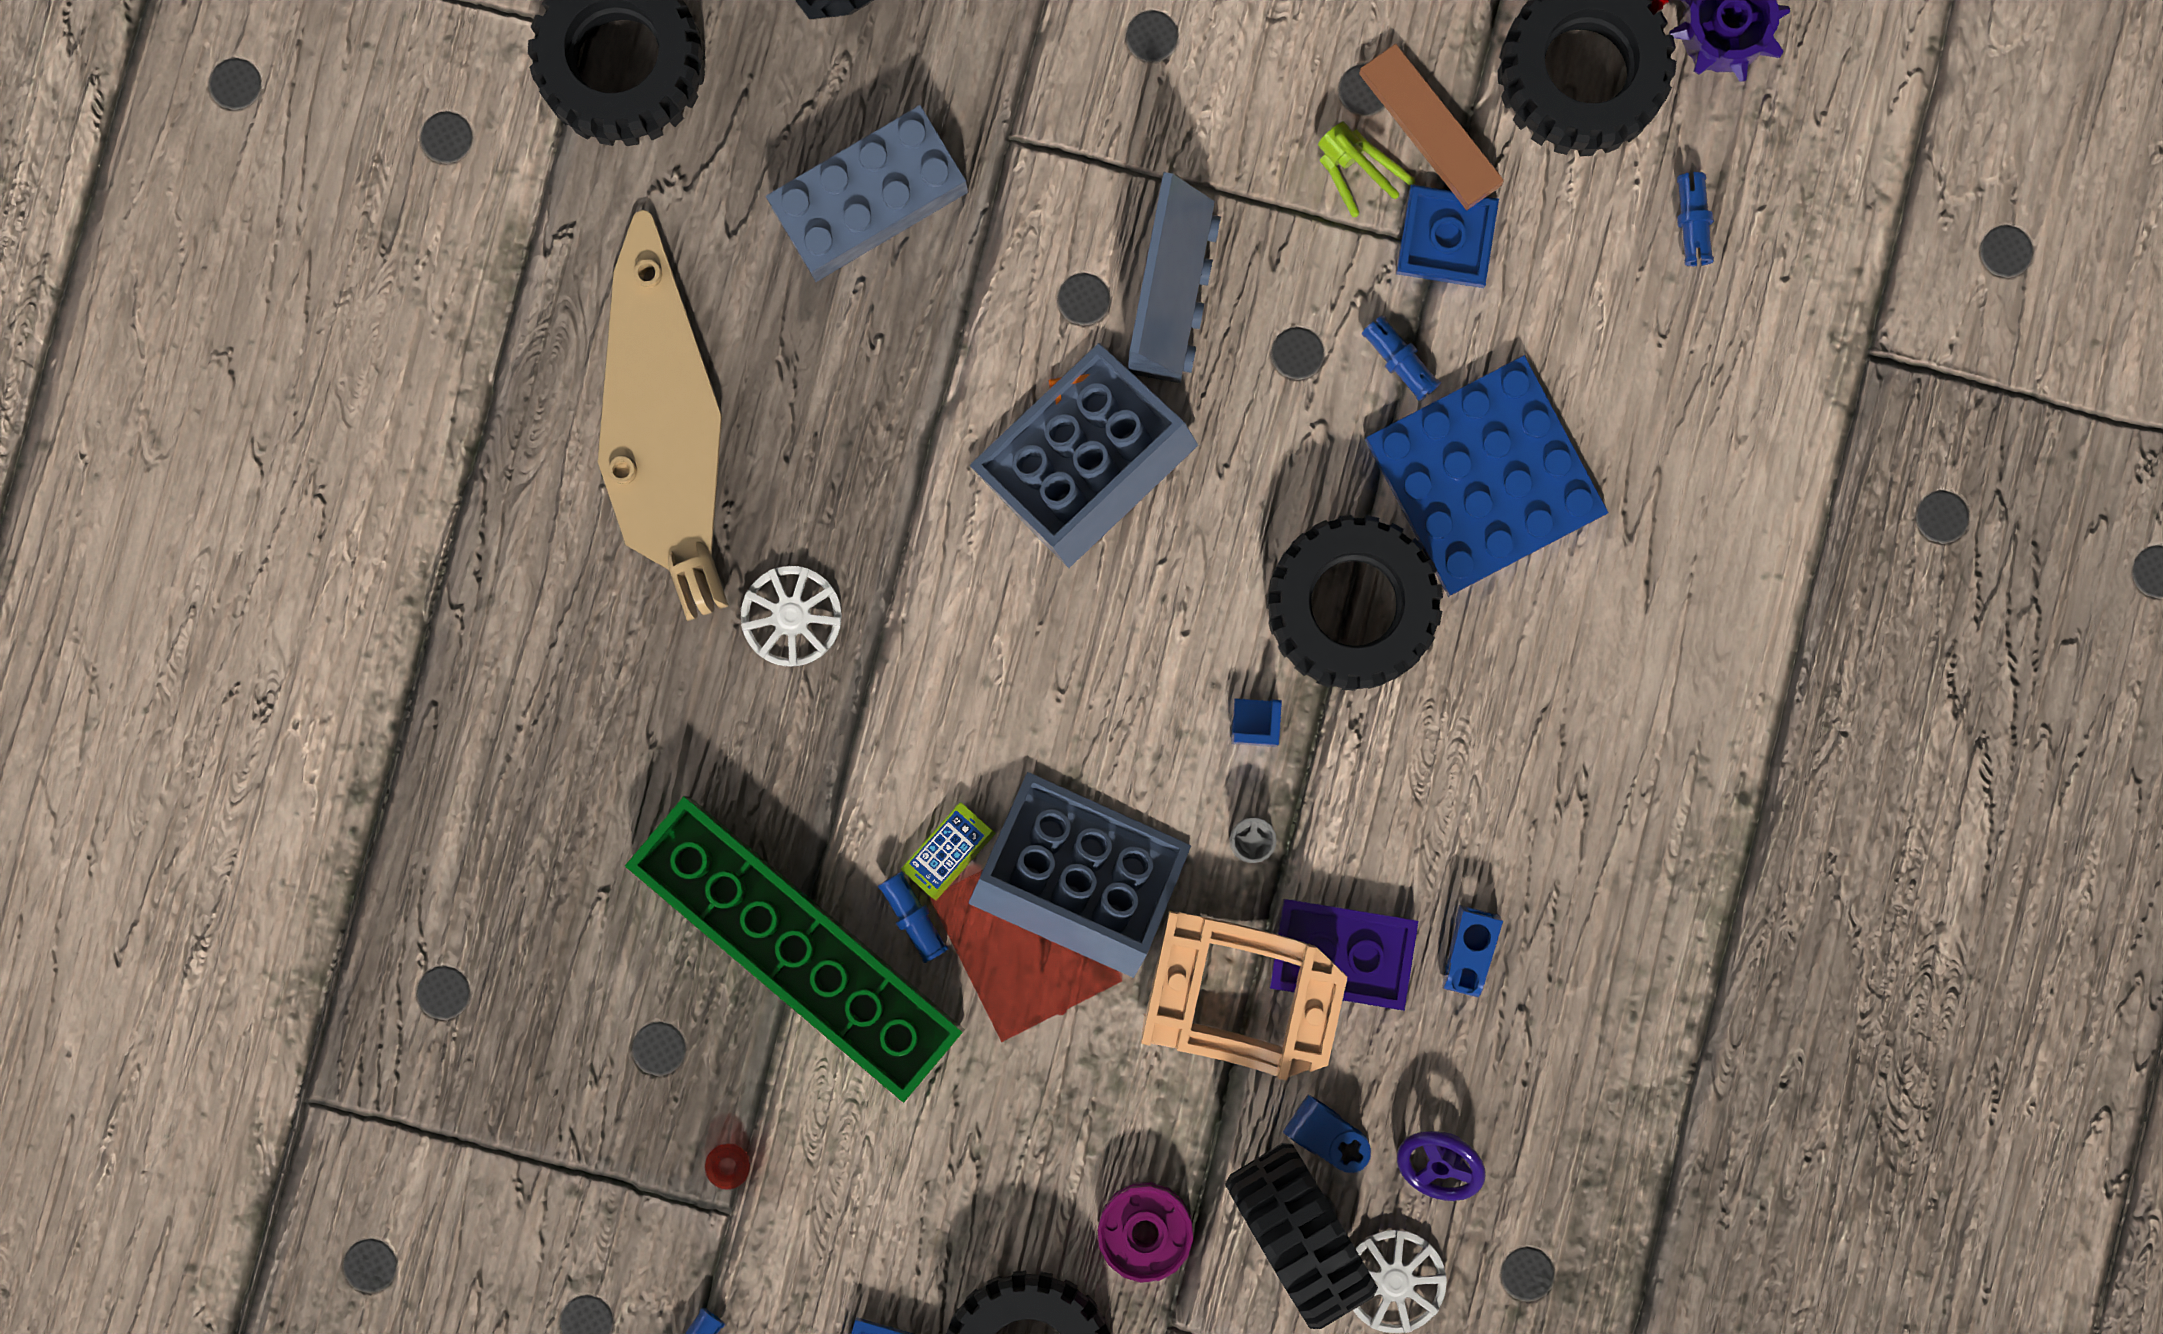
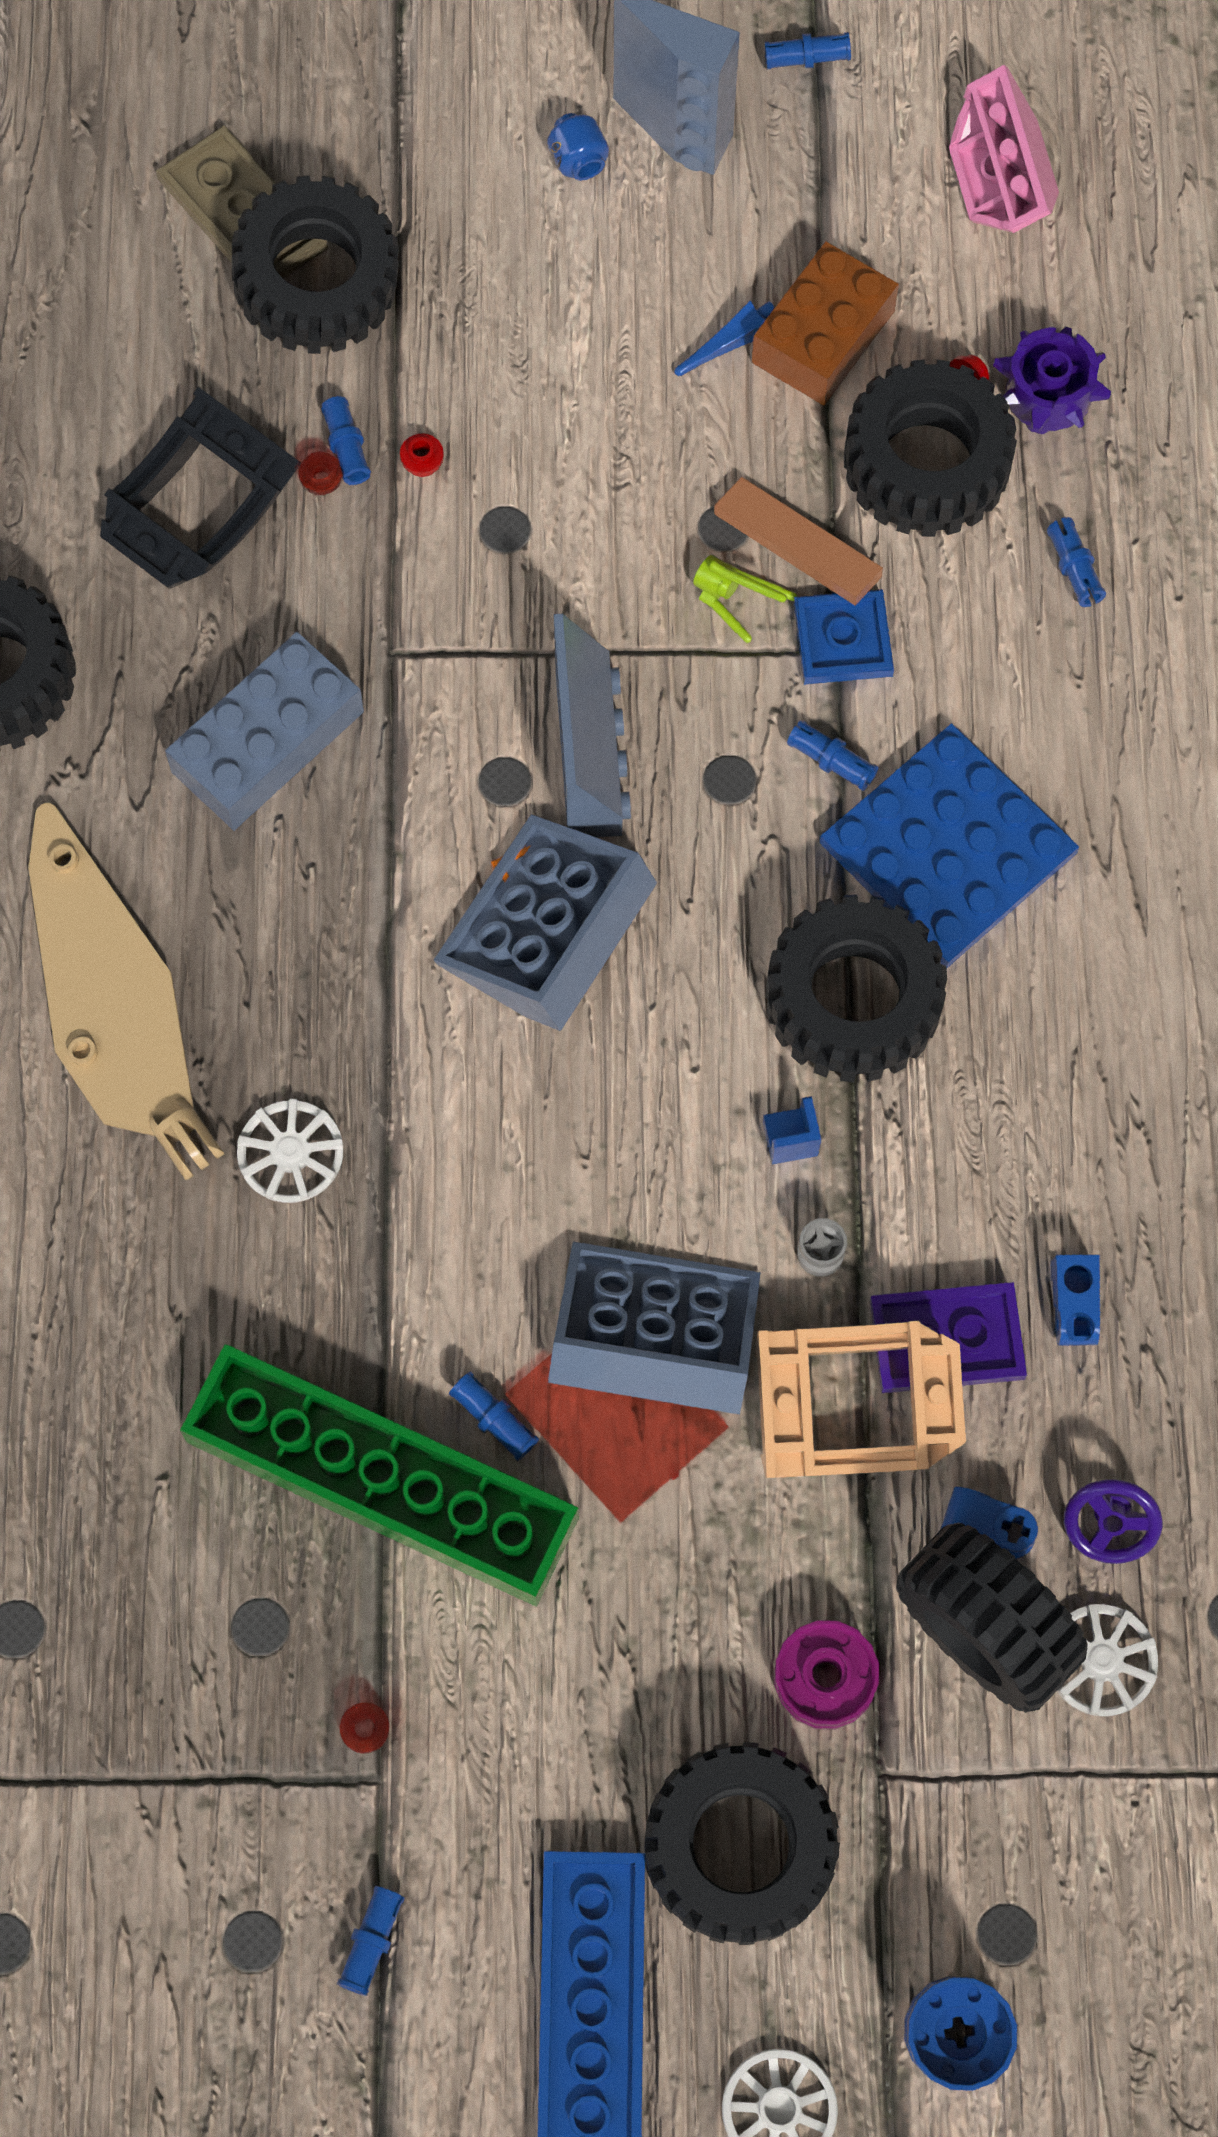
camera: 20 degrees left, 15 degrees down
(948, 851) = (512, 1340): tile -> none

